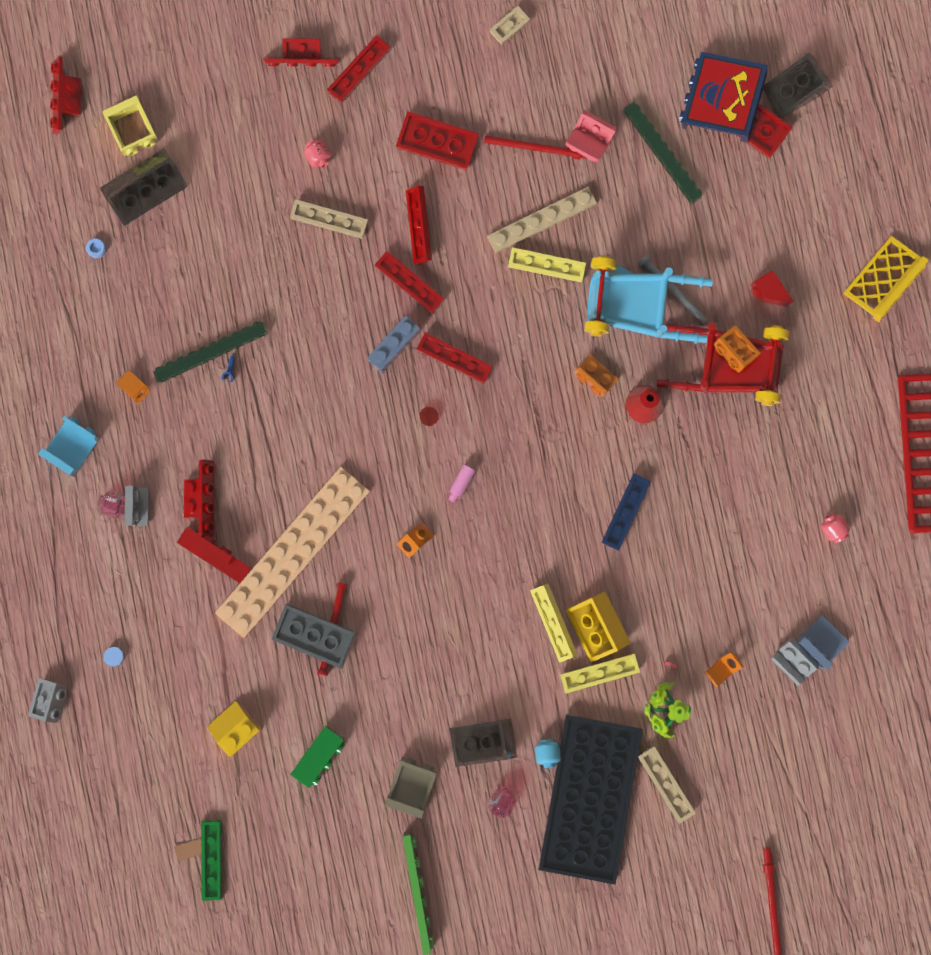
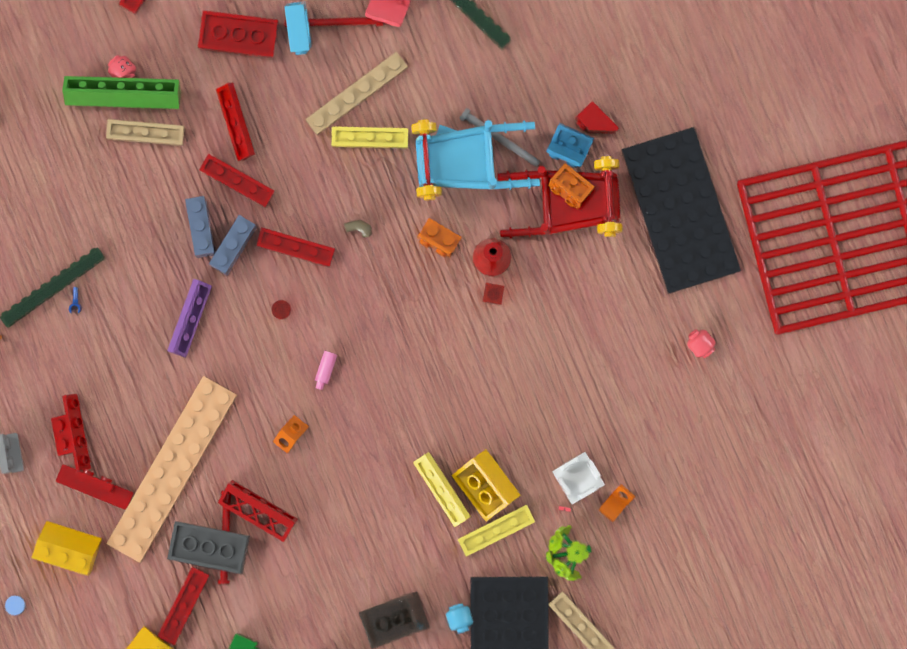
camera: 10 degrees left, 0 degrees up
(175, 610) = (67, 548): none -> yellow slope
(278, 688) = (183, 605): none -> red plate
(313, 175) = (121, 92): none -> bright green brick
(337, 407) = (189, 318): none -> medium lavender brick
(365, 320) = (200, 226): none -> sand blue brick
(373, 603) = (262, 505): none -> red fence
(497, 144) = (298, 27): none -> medium azure window
(521, 349) = (359, 225): none -> dark tan arm
(625, 512) = (492, 367): dark blue plate -> none
(639, 440) = (493, 293): none -> clear red plate
(690, 637) = (578, 478): none -> white panel
(741, 309) = (569, 145): none -> dark azure bracket
(795, 661) = (685, 482): light grey bracket -> none
(822, 642) = (708, 458): sand blue bracket -> none
(838, 393) = (681, 210): none -> black plate
(901, 284) = (723, 91): yellow fence -> none

